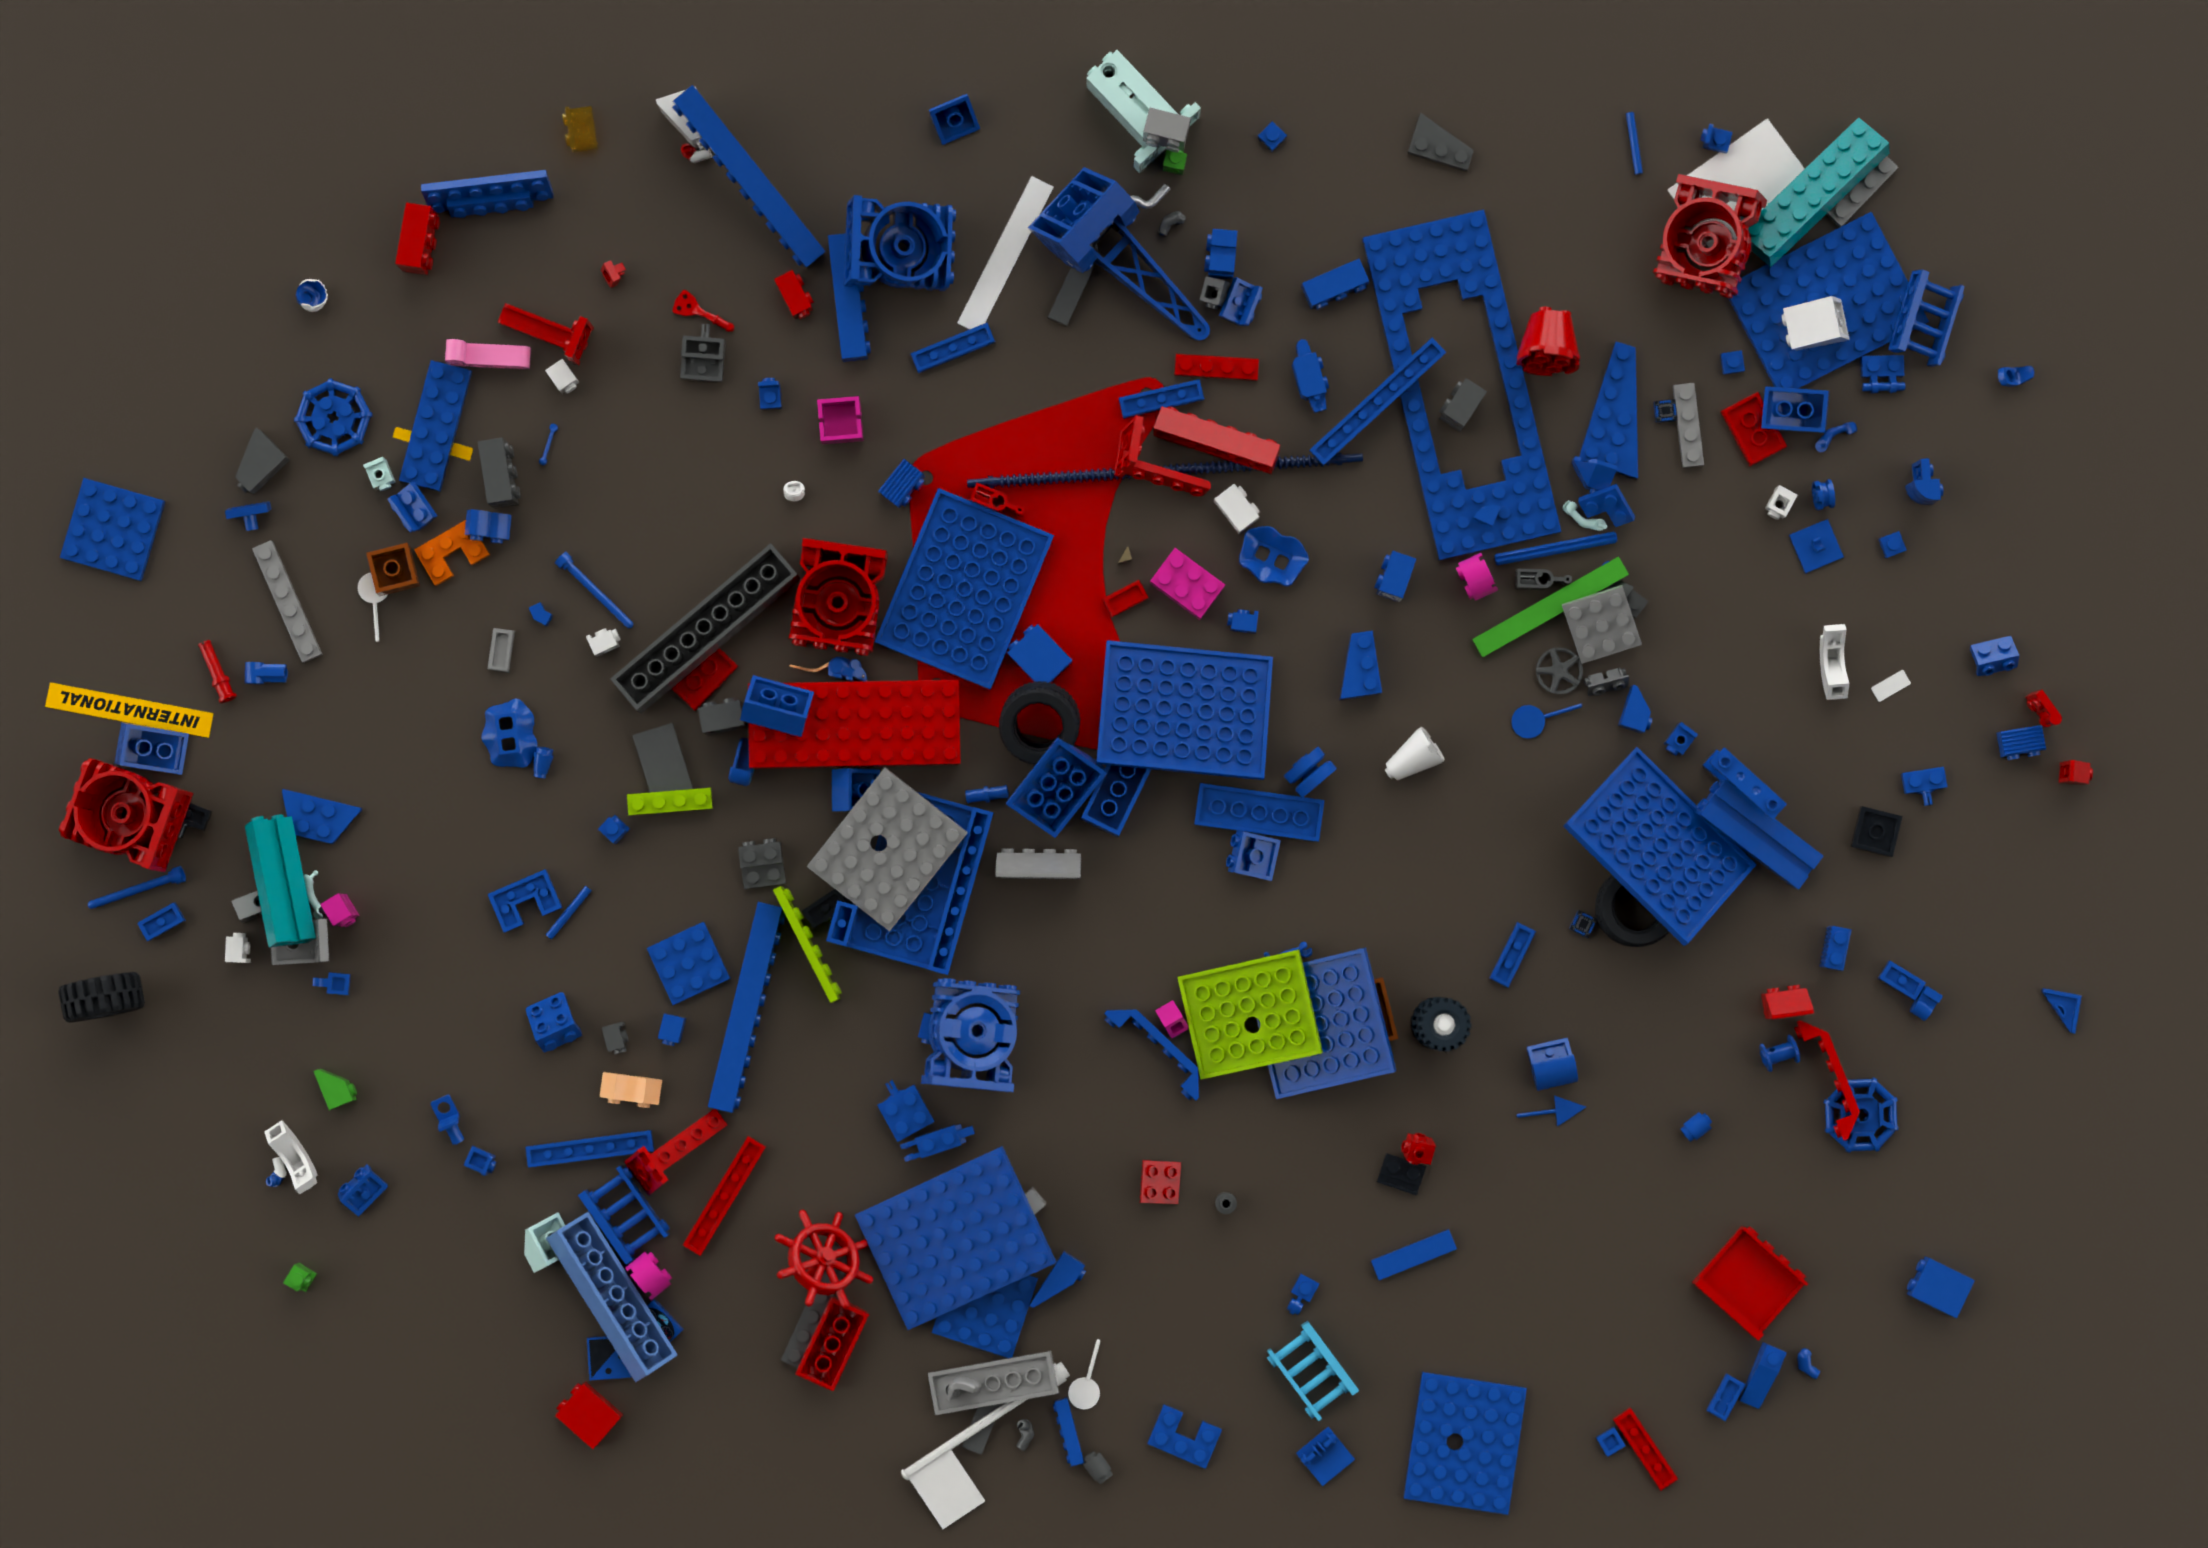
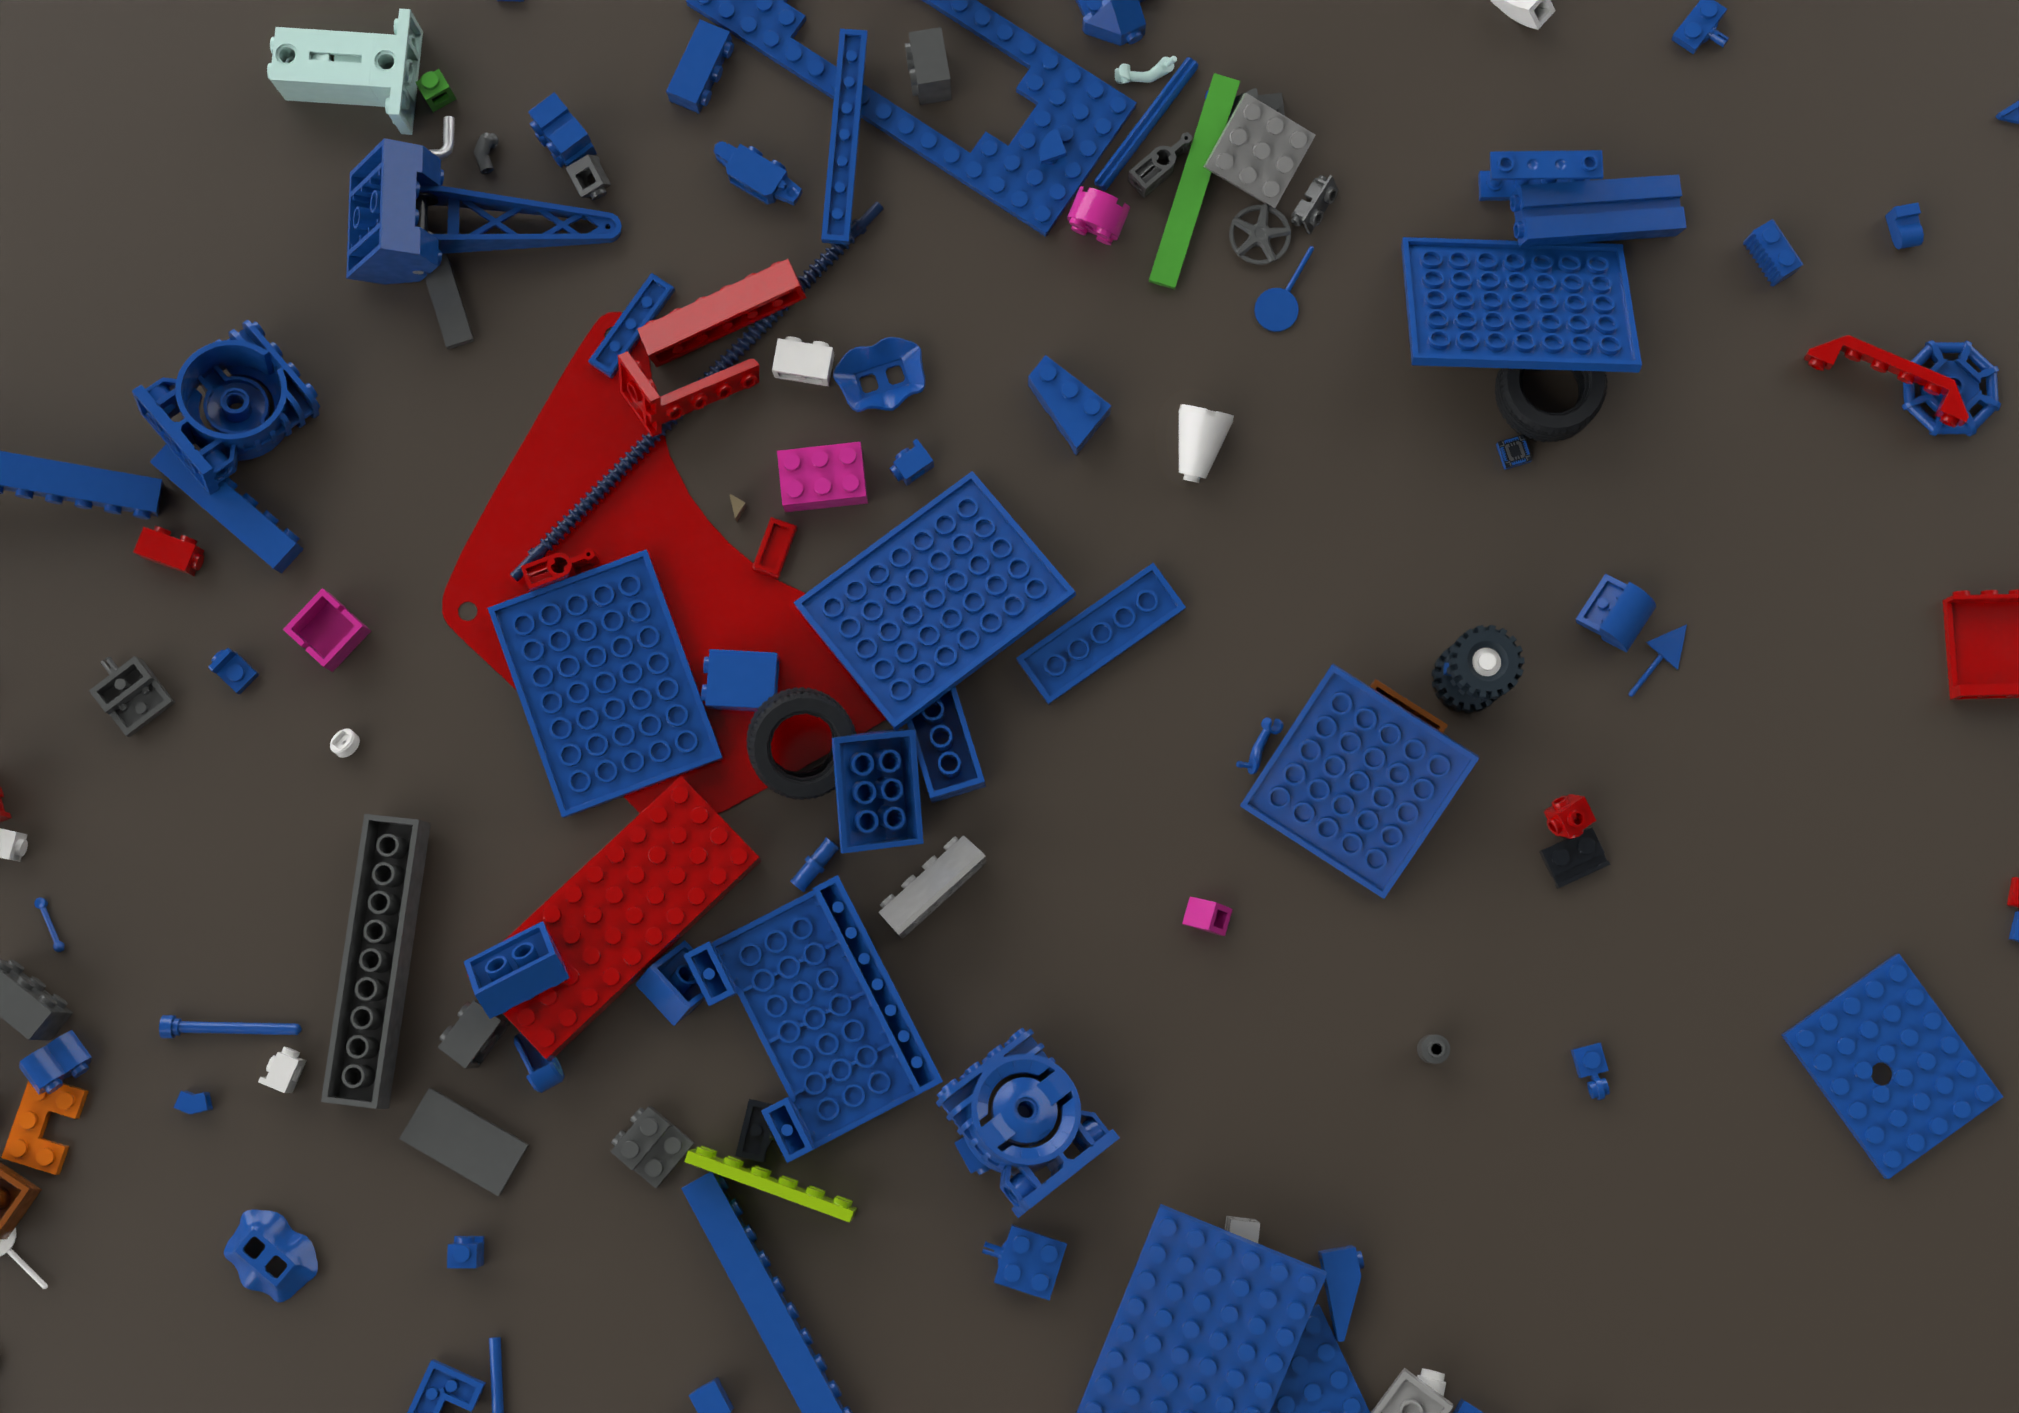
camera: 40 degrees left, 5 degrees down
(501, 650) = (185, 1177): light grey tile -> none
(542, 761) = (329, 1251): blue cone -> none
(669, 801) = (498, 1170): lime plate -> none
(688, 963) = (668, 1318): blue plate -> none
(697, 310) = (83, 656): red piece -> none
(705, 679) = (423, 1012): red tile -> none
(804, 625) = (482, 867): red brick -> none
(839, 668) = (551, 875): blue animal -> none
(902, 484) = (448, 636): blue brick -> none
(916, 848) = (792, 980): light grey plate -> none
(938, 1141) = (1089, 1260): blue hinge -> none
(952, 347) = (378, 461): blue tile -> none
(954, 119) = (177, 240): blue slope -> none
(1005, 254) = (350, 328): white sticker -> none
(1084, 1391) = (1473, 1375): white piece -> none
(1160, 1182) = (1348, 1090): red hinge -> none
(1166, 130) = (391, 52): light grey brick -> none
(1167, 1439) = (1603, 1345): blue plate -> none
(1191, 1084) = (1286, 962): blue slope -> none
(1216, 367) = (658, 247): red plate -> none
(1241, 302) = (624, 164): blue bracket -> none
(1253, 855) = (1134, 680): blue plate -> none
(1263, 988) = (1273, 797): lime plate -> none
(1309, 771) = (1113, 546): blue wheel -> none
(1325, 1456) = (1771, 1211): blue hinge -> none
(1333, 1368) = (1695, 1114): medium azure fence -> none
(1395, 576) = (1018, 284): blue brick -> none
(1413, 1254) = (1662, 926): blue tile -> none
(1512, 954) = (1475, 544): blue tile -> none
(1610, 501) = (1157, 29): blue plate -> none
(1635, 712) = (1369, 205): blue slope -> none
(1683, 731) = (1430, 200): blue brick -> none
(1696, 1126) = (1810, 544): blue brick -> none
(1779, 1053) = (1819, 400): blue hose -> none
(1786, 1003) = (1780, 345): red slope -> none
(1876, 831) = (1702, 110): black plate -> none
(1901, 980) = (1863, 226): blue plate -> none

